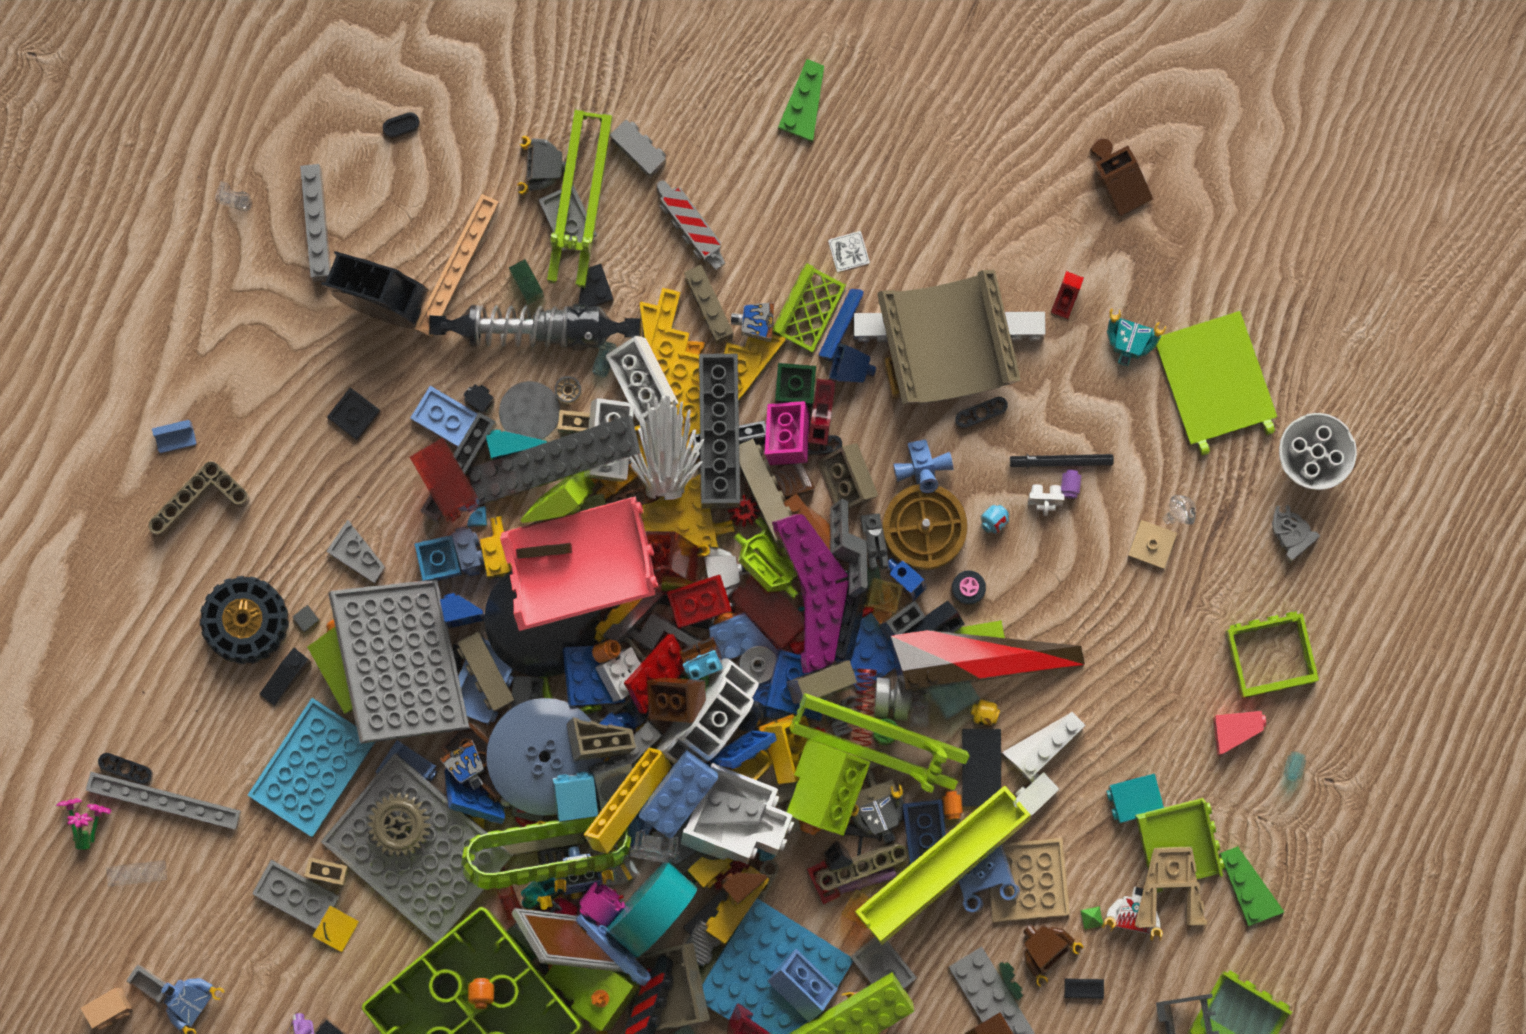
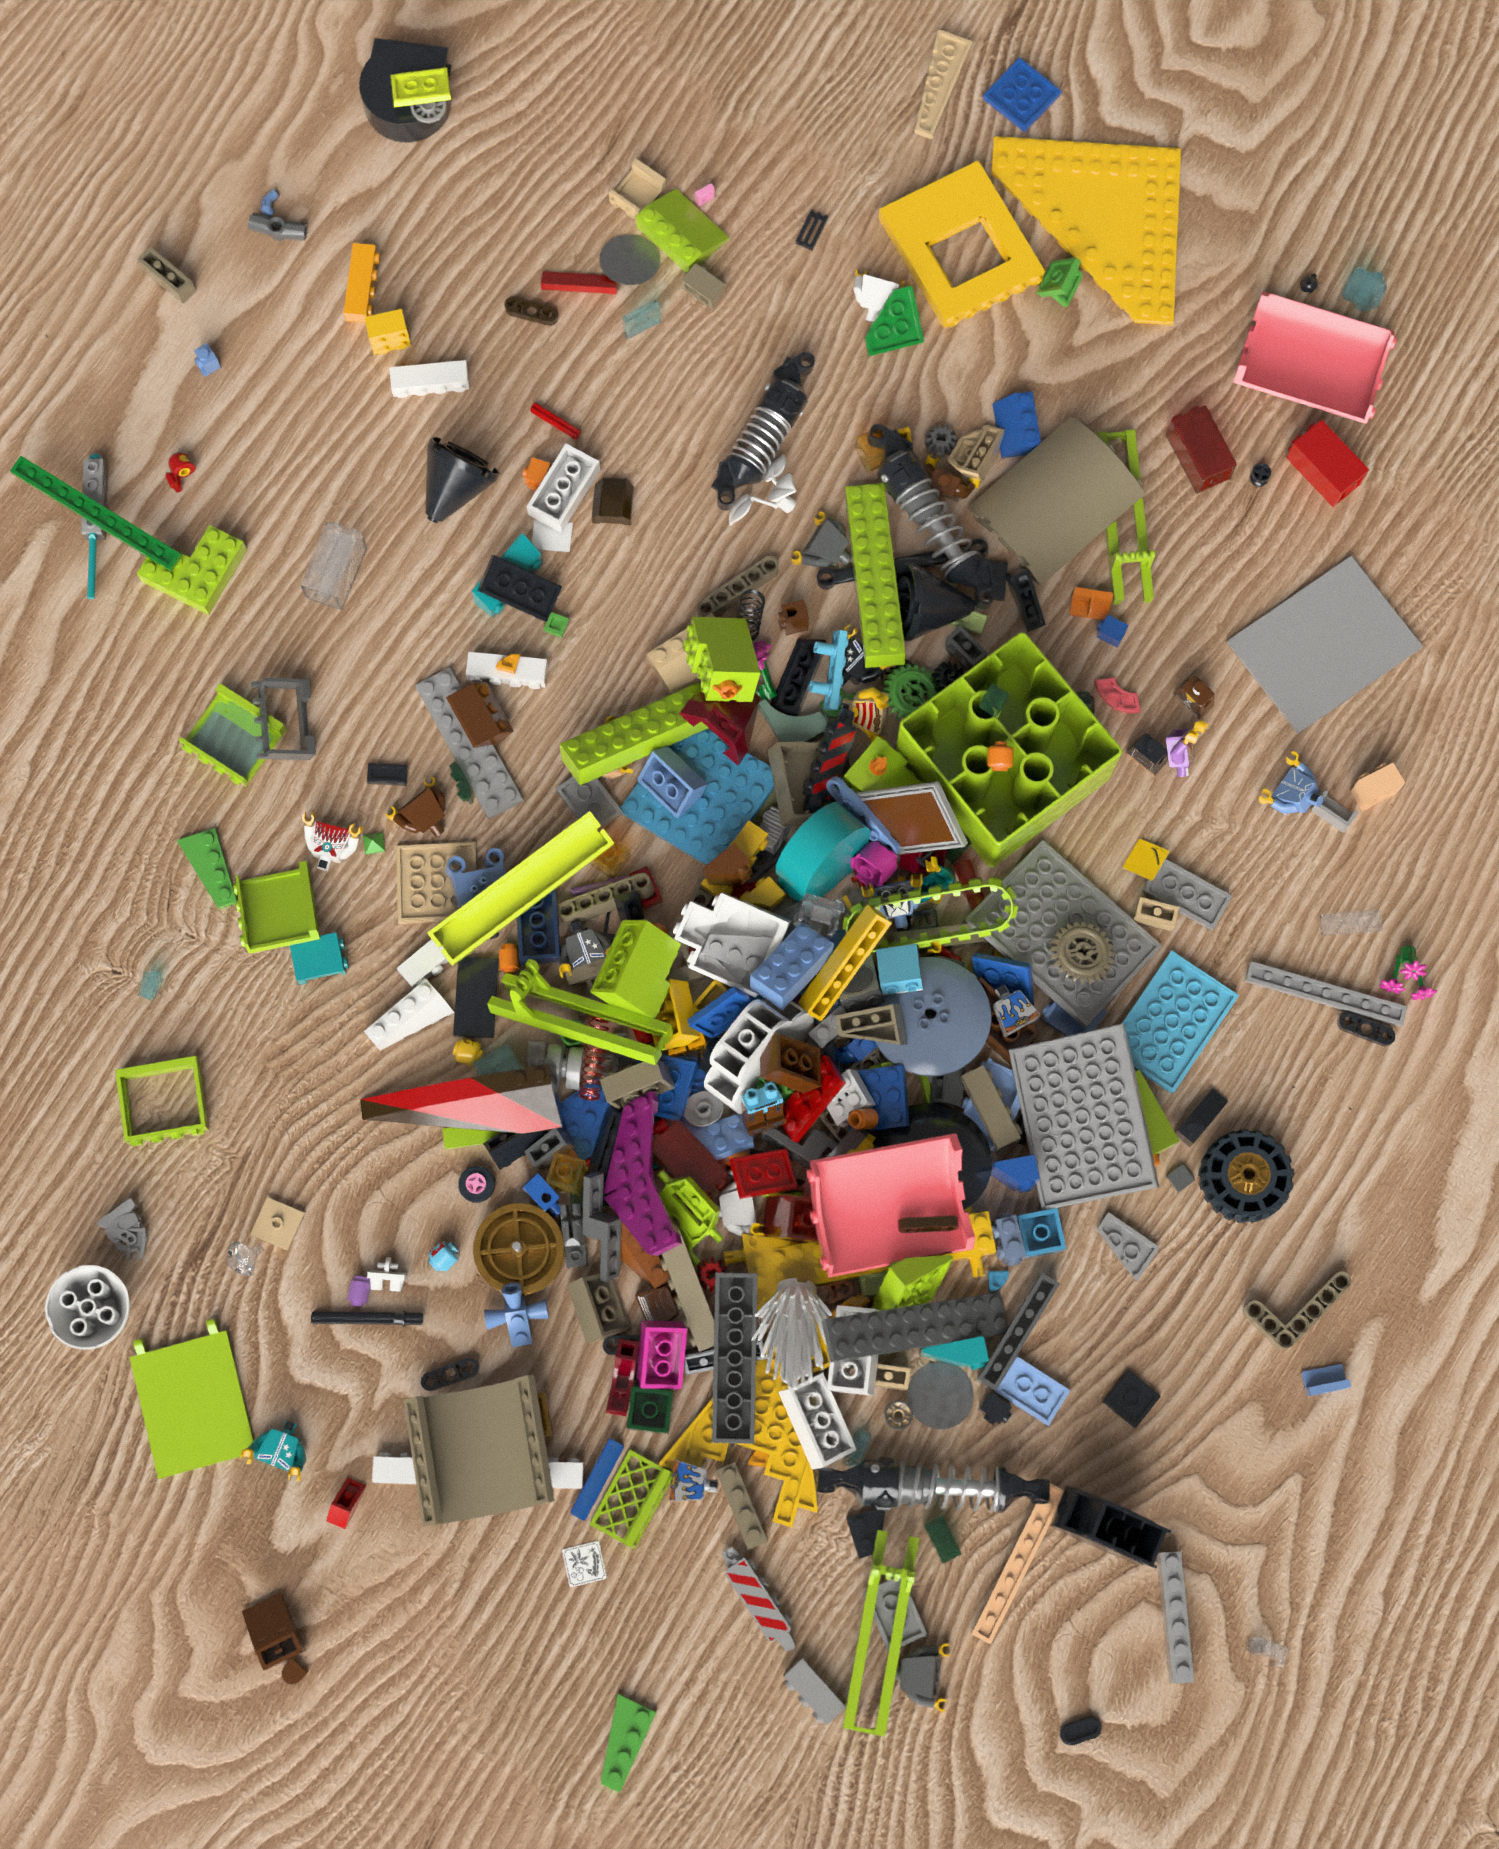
camera: 175 degrees left, 5 degrees down
(445, 480) = (1033, 1310): clear red brick -> none
(850, 365) = (589, 1429): dark blue torso -> none
(1171, 869) = (290, 880): tan wing -> none
(1236, 728) = (206, 1025): coral slope -> none

